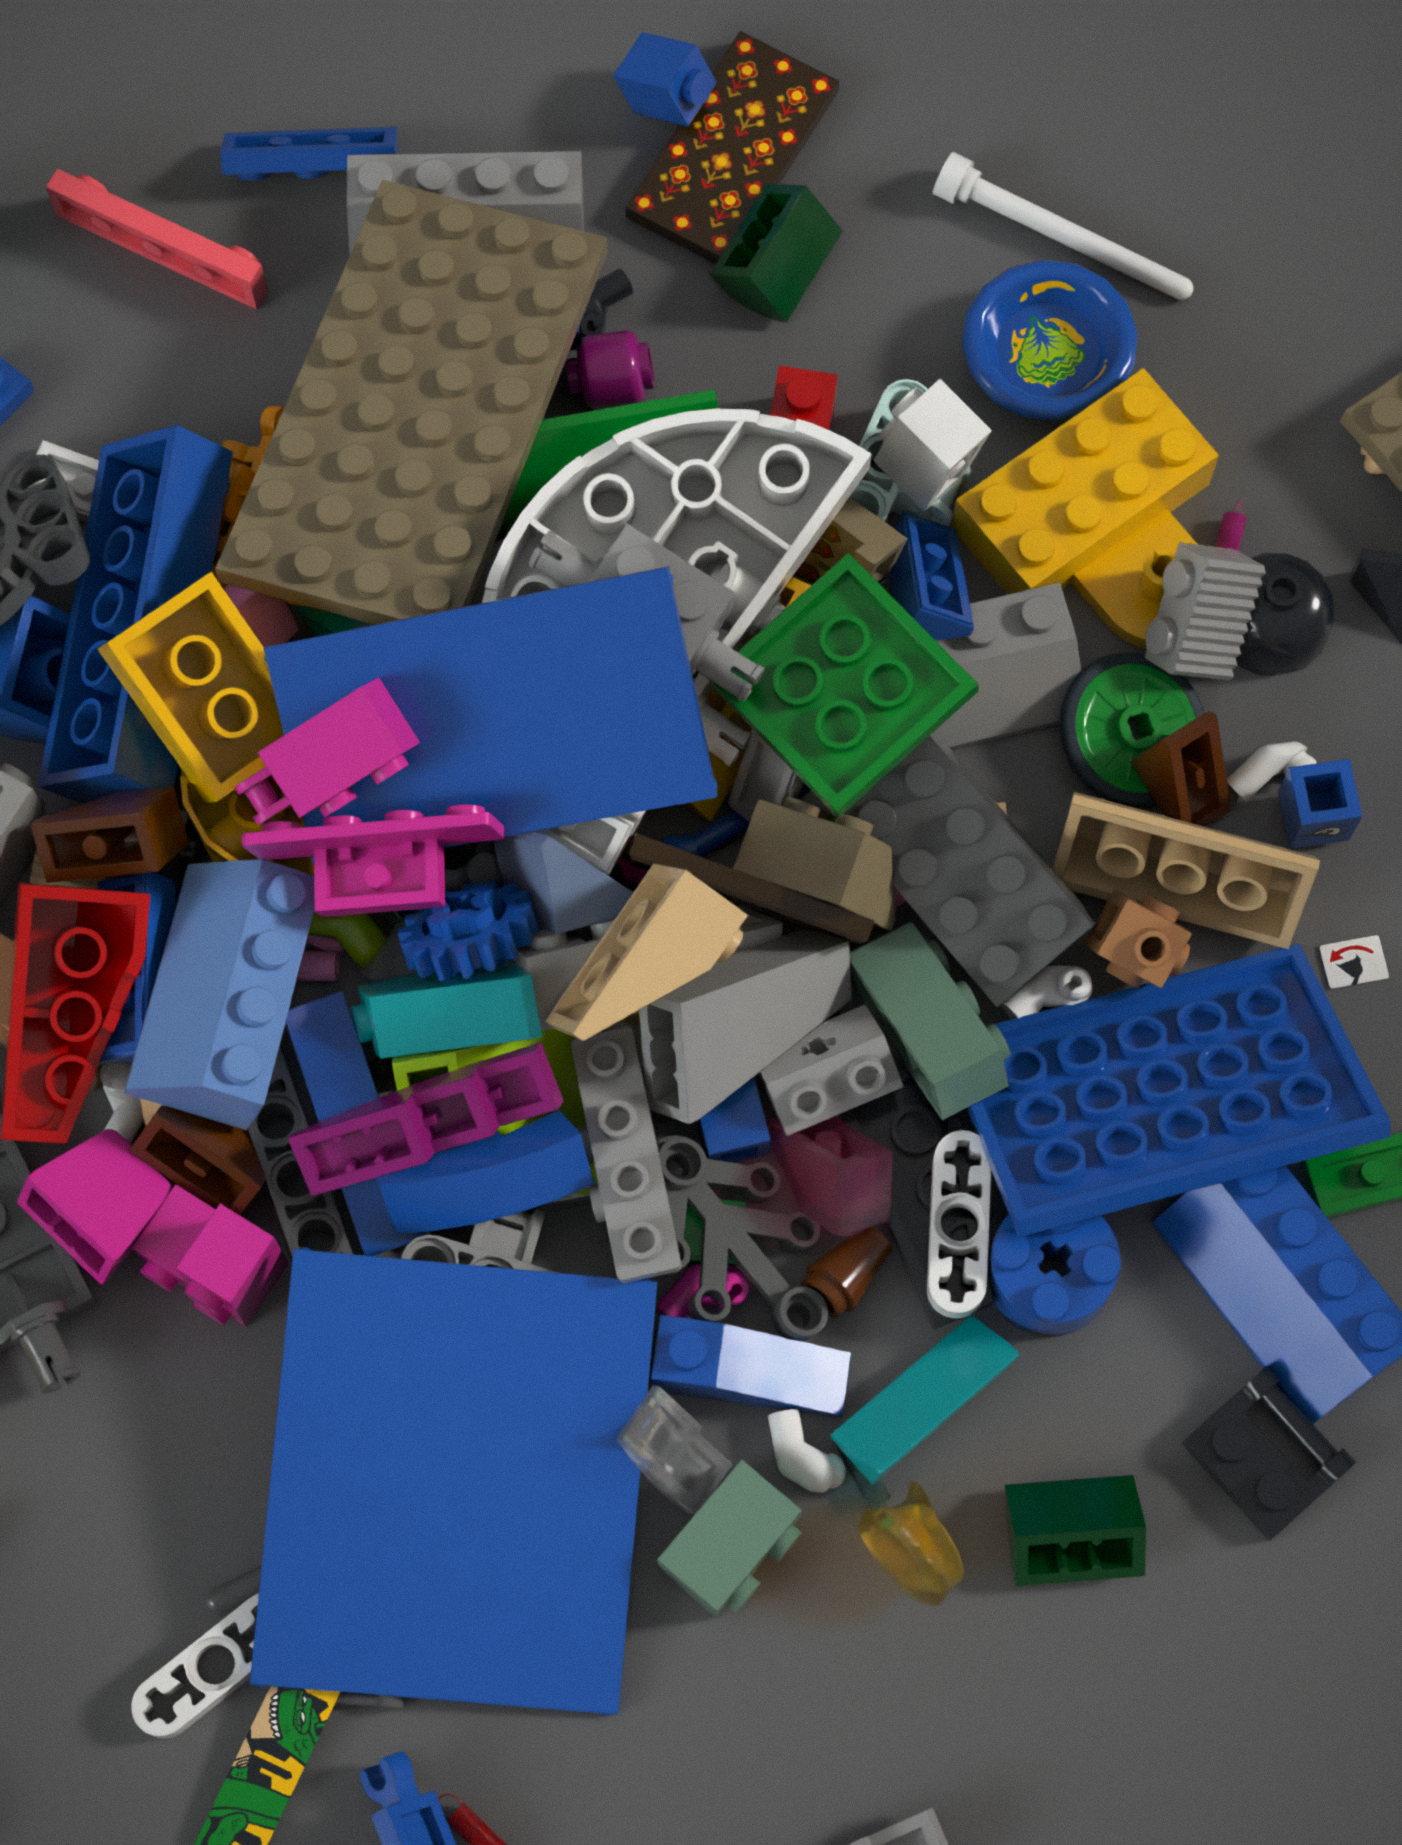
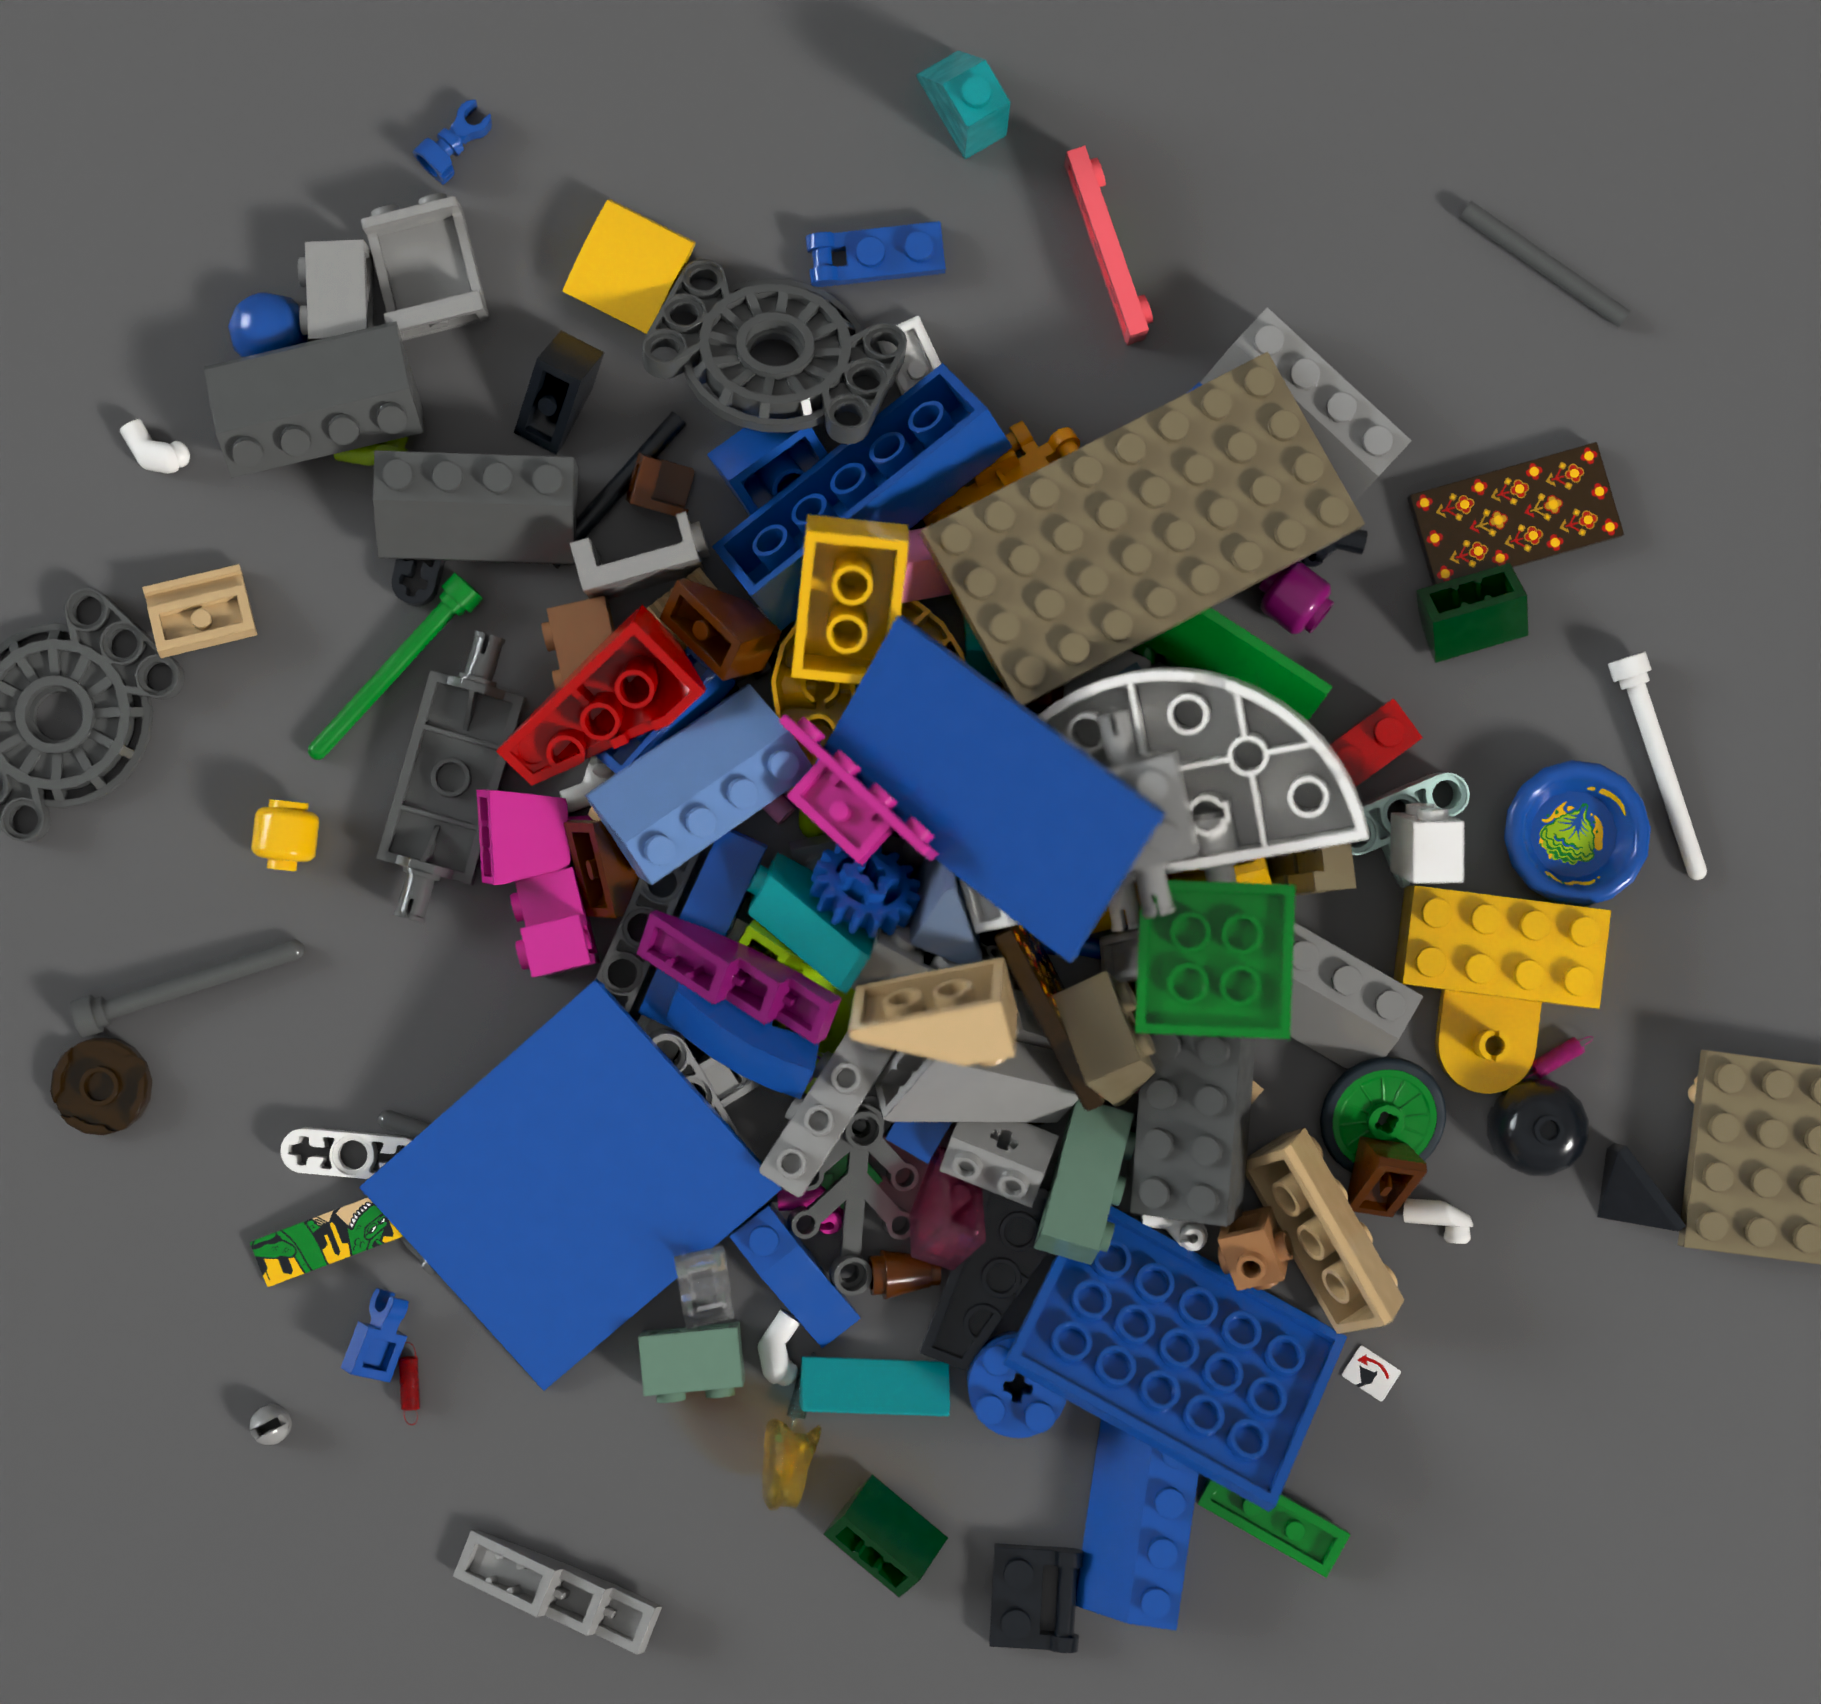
camera: 40 degrees right, 15 degrees up
(305, 152) = (1252, 271): blue plate -> none
(331, 754) = (876, 720): dark pink brick -> none
(665, 79) = (1515, 435): blue brick -> none
(931, 578) = (1348, 920): blue slope -> none
(940, 1269) = (988, 1333): white beam -> none
(1203, 611) = (1491, 1095): light grey brick -> none
(1319, 803) = (1441, 1271): blue brick -> none

